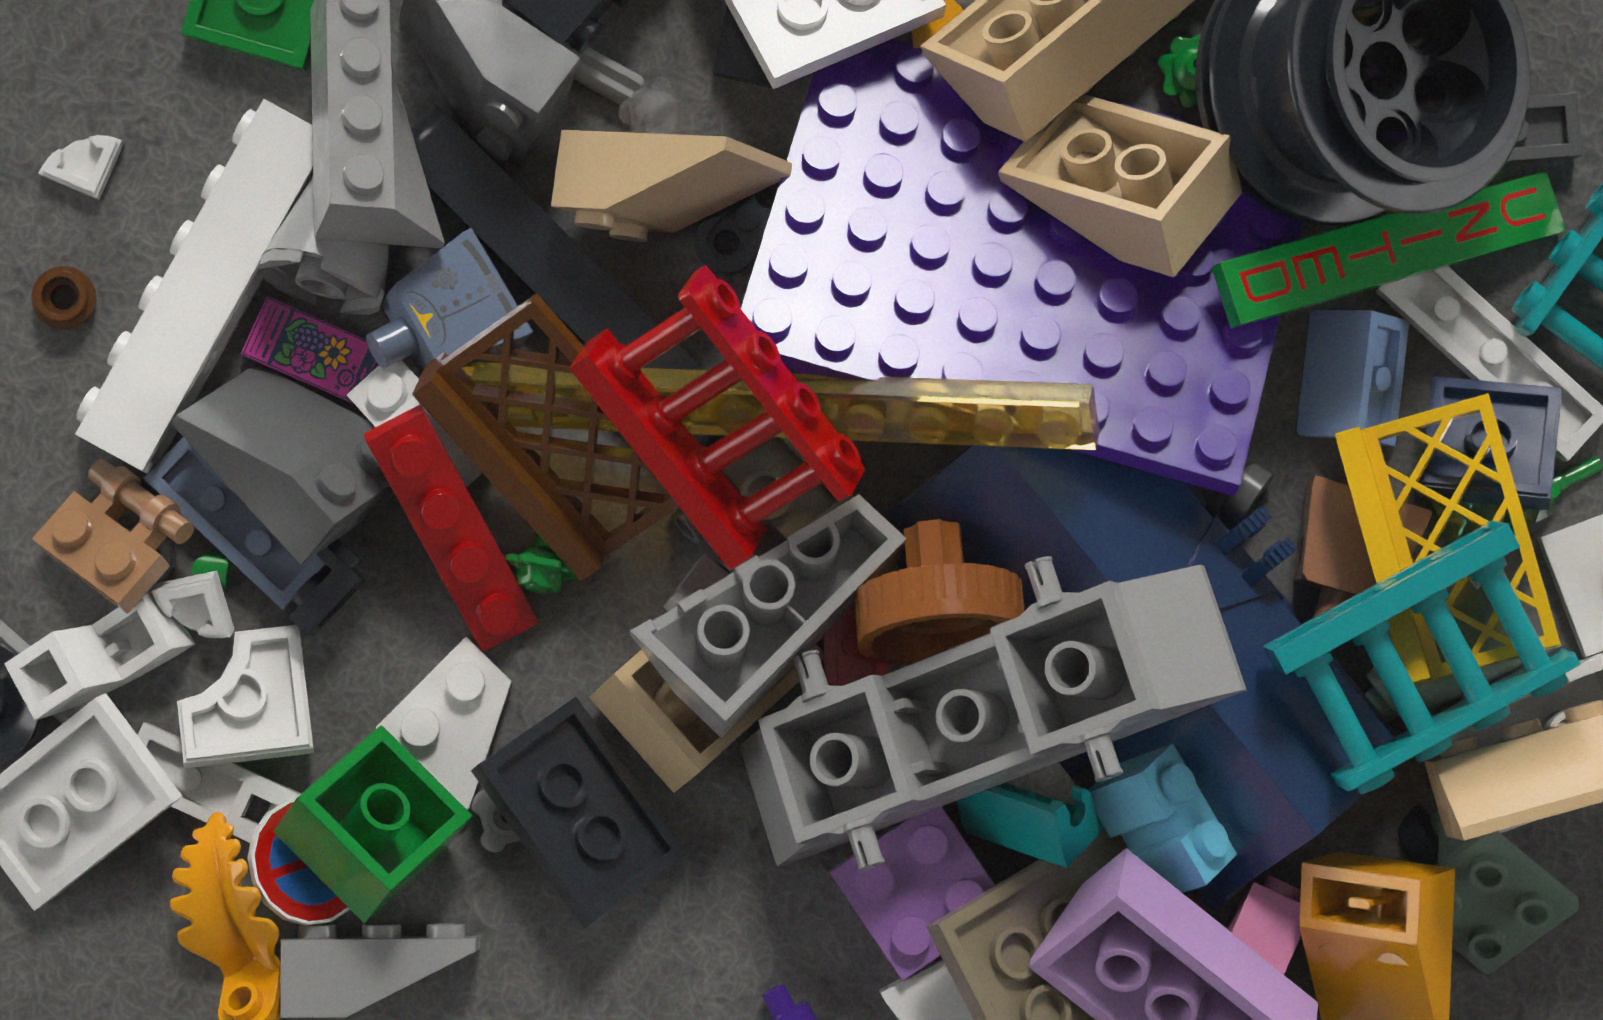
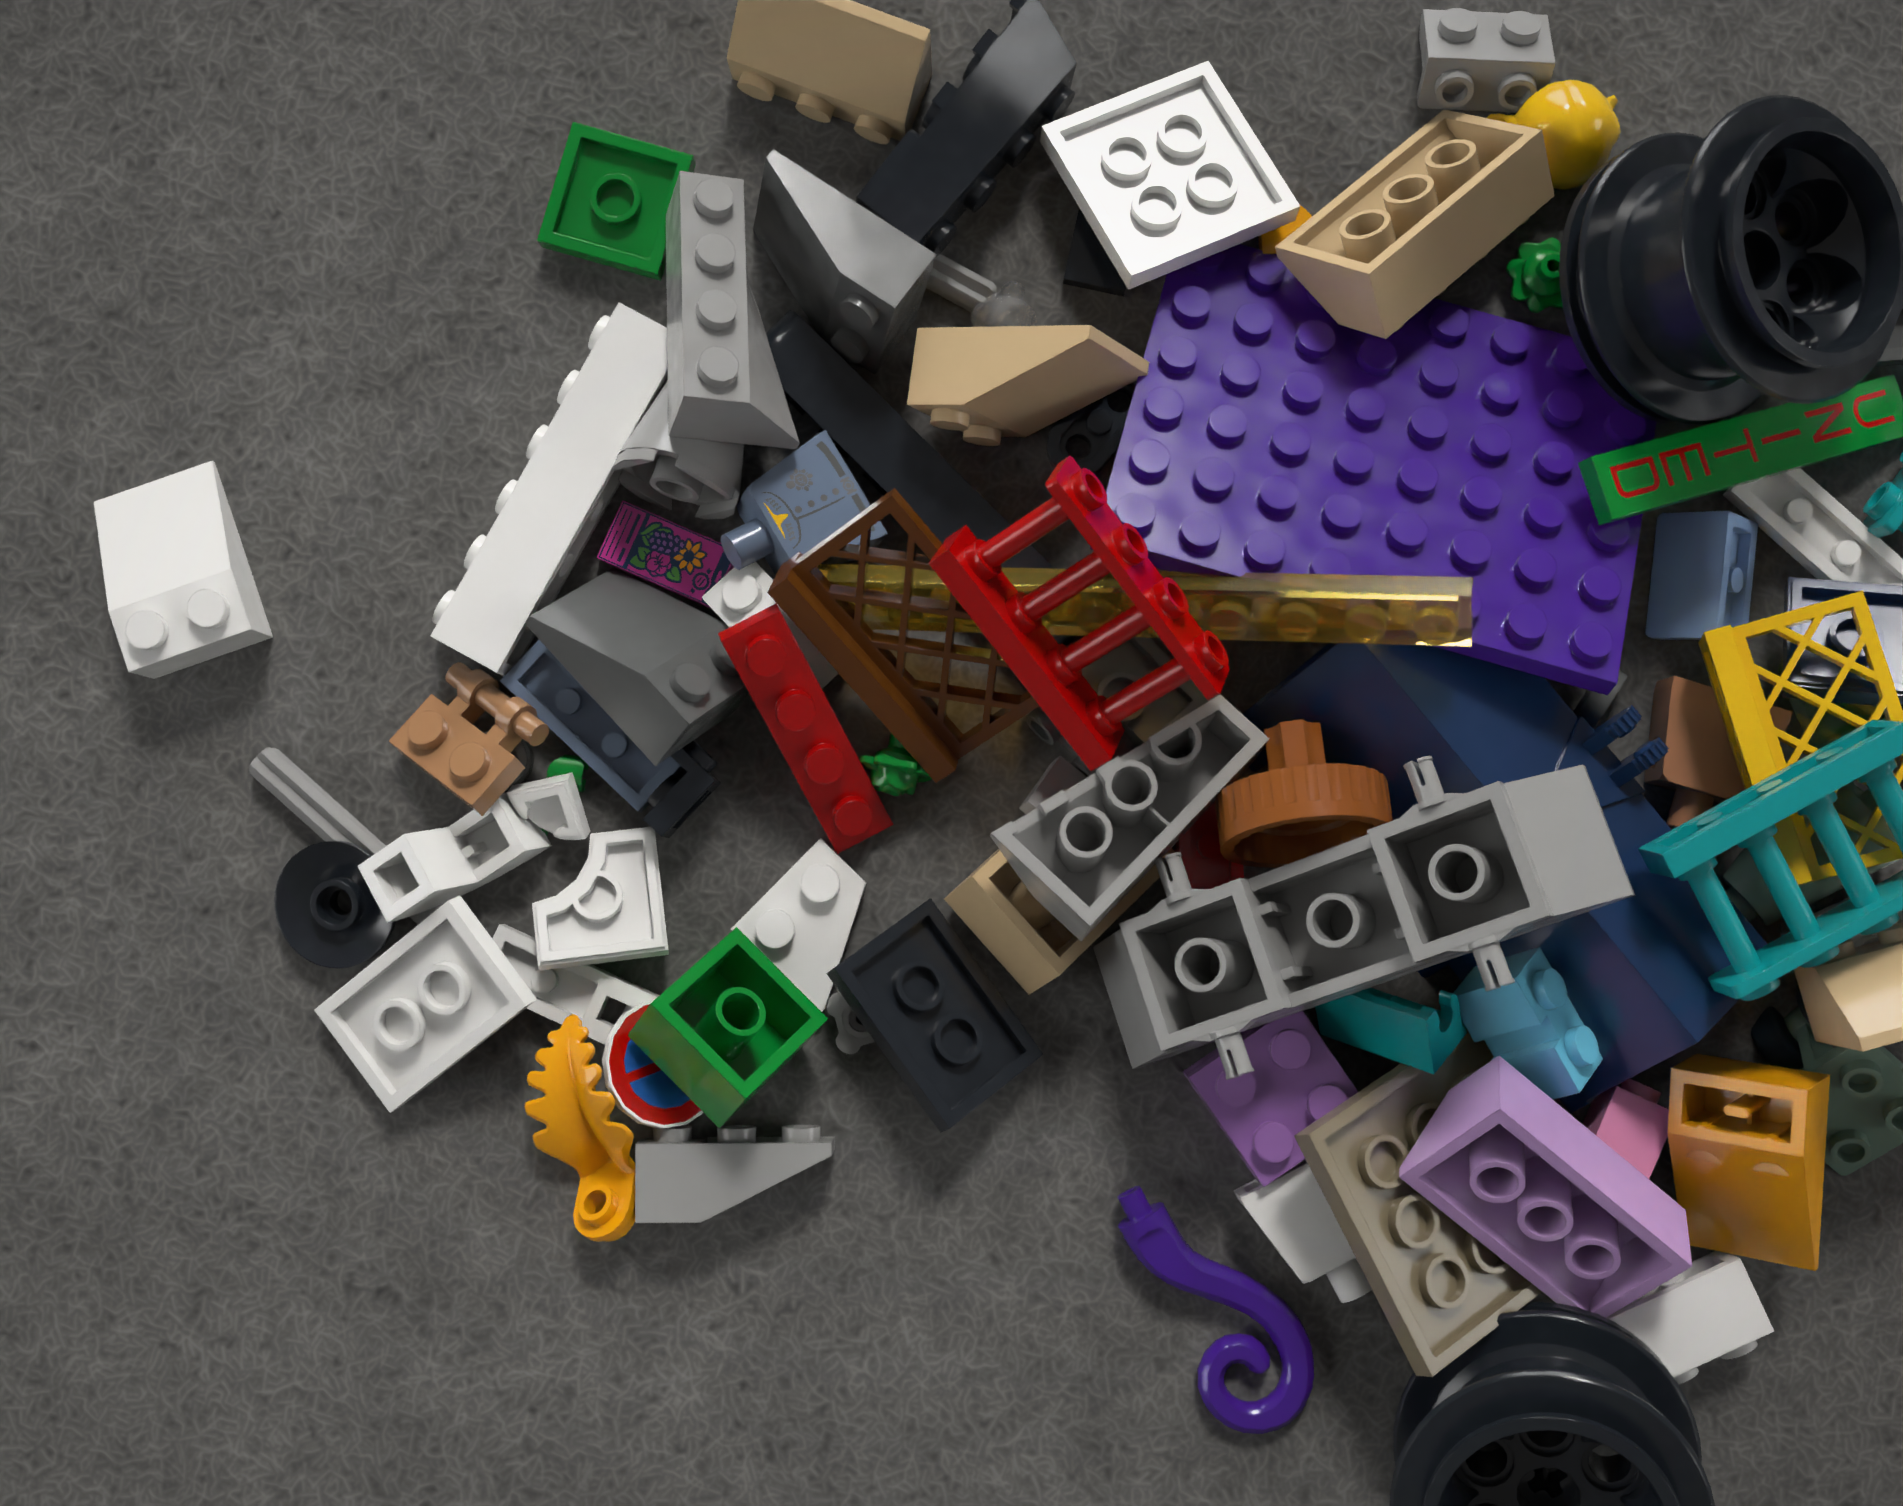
camera: 10 degrees right, 0 degrees up
(44, 292) = (402, 502): reddish brown plate -> none
(84, 164) = (442, 371): white tile -> none
(1128, 180) = (1491, 377): tan slope -> none

